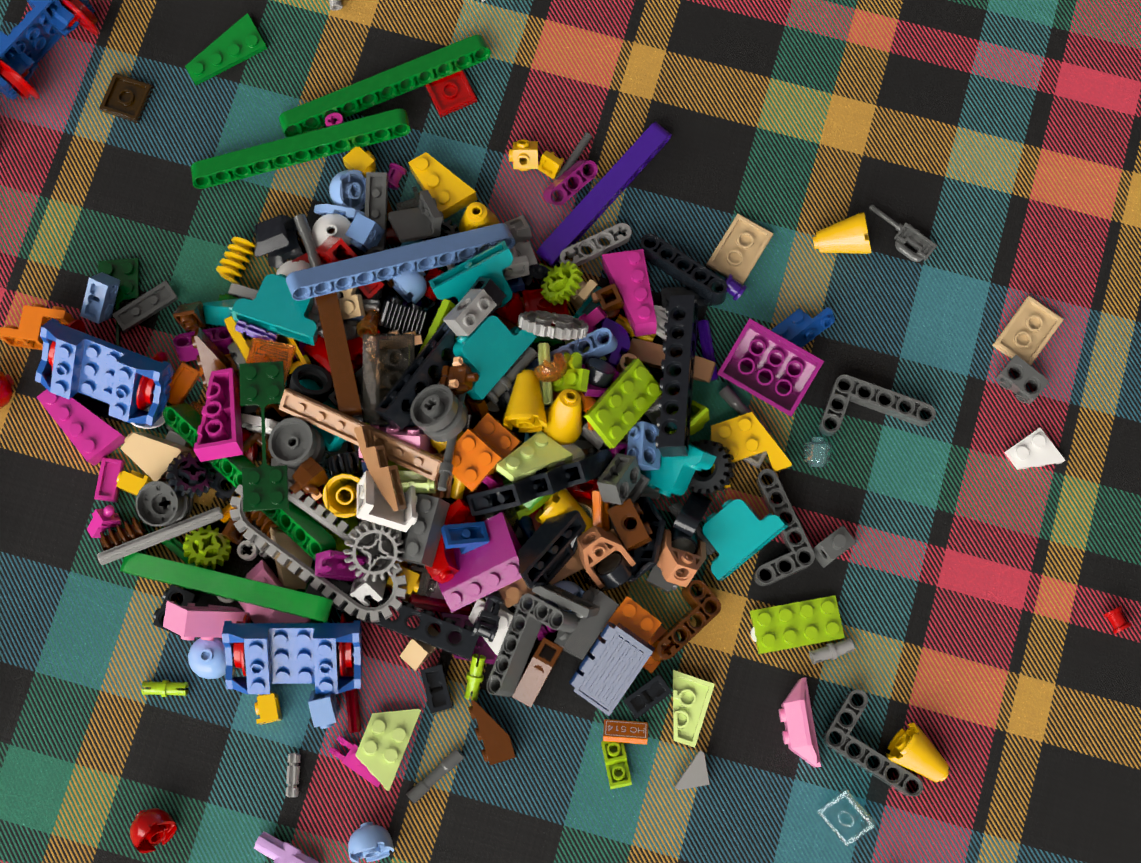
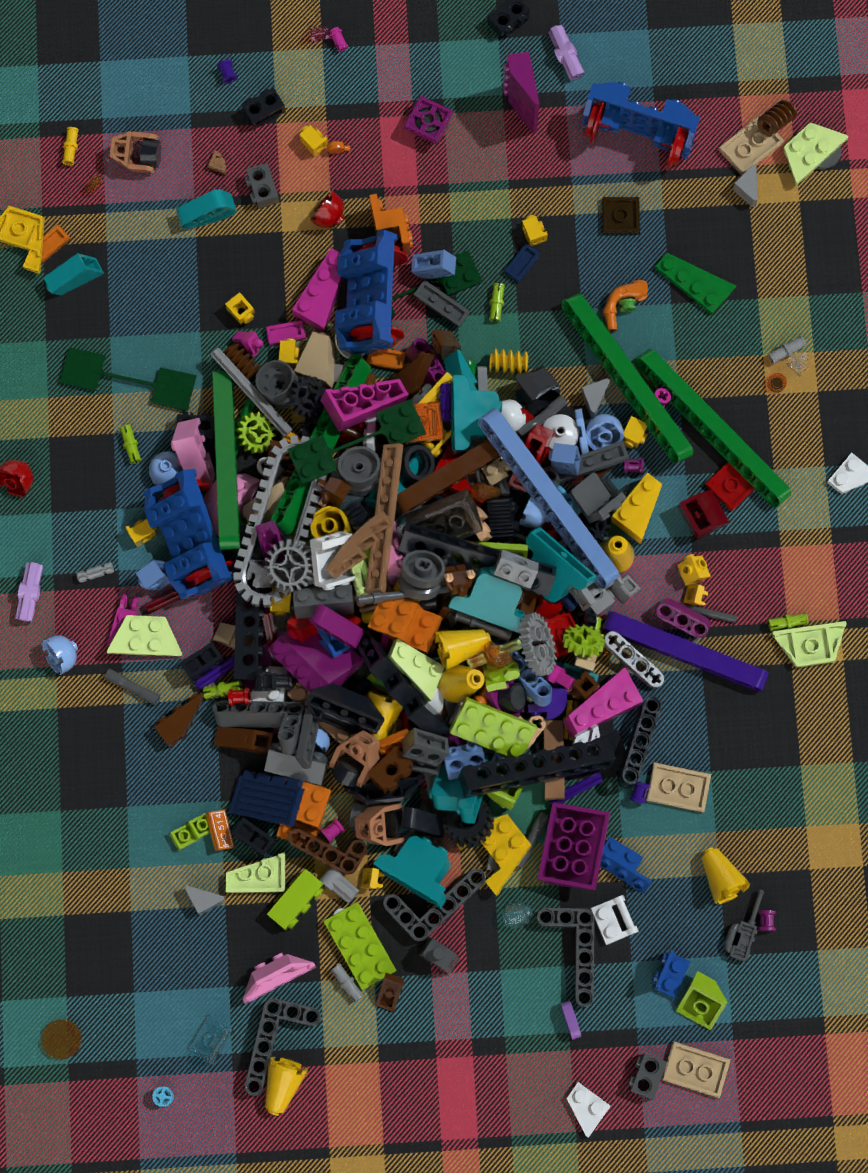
camera: 70 degrees right, 0 degrees up
(56, 516) = (239, 303): none -> yellow brick
(61, 709) = (86, 368): none -> dark green hinge
(106, 187) = (534, 230): none -> yellow brick
(135, 212) = (522, 263): none -> dark blue tile
(167, 251) = (496, 302): none -> lime pin
(212, 109) = (635, 290): none -> orange piece
(224, 123) = (627, 305): none -> bright green bush
(305, 189) = (594, 394): none -> light grey slope
(362, 11) = (777, 382): none -> clear orange tile
(453, 678) = (215, 673): none -> dark purple axle
(458, 524) = (336, 626): none -> magenta beam
(471, 127) = (703, 514): none -> dark red slope
(491, 660) = (239, 696): none -> red bush
(609, 86) = (788, 621): none -> lime pin
(640, 72) = (811, 644): none -> yellowish green wing
(666, 611) = (332, 830): none -> dark pink bush
(723, 625) = (335, 881): none -> light grey piece
(728, 674) = (296, 900): none -> lime brick
(730, 589) = (370, 878): none -> yellow tile
(855, 366) = (608, 922): none -> white plate
(856, 609) = (390, 992): none -> reddish brown slope
(907, 216) = (767, 920): none -> magenta bush
(925, 323) = (671, 974): none -> blue bracket
(946, 436) = (570, 1019): none -> medium lavender beam
(963, 300) = (702, 1001): none -> lime slope

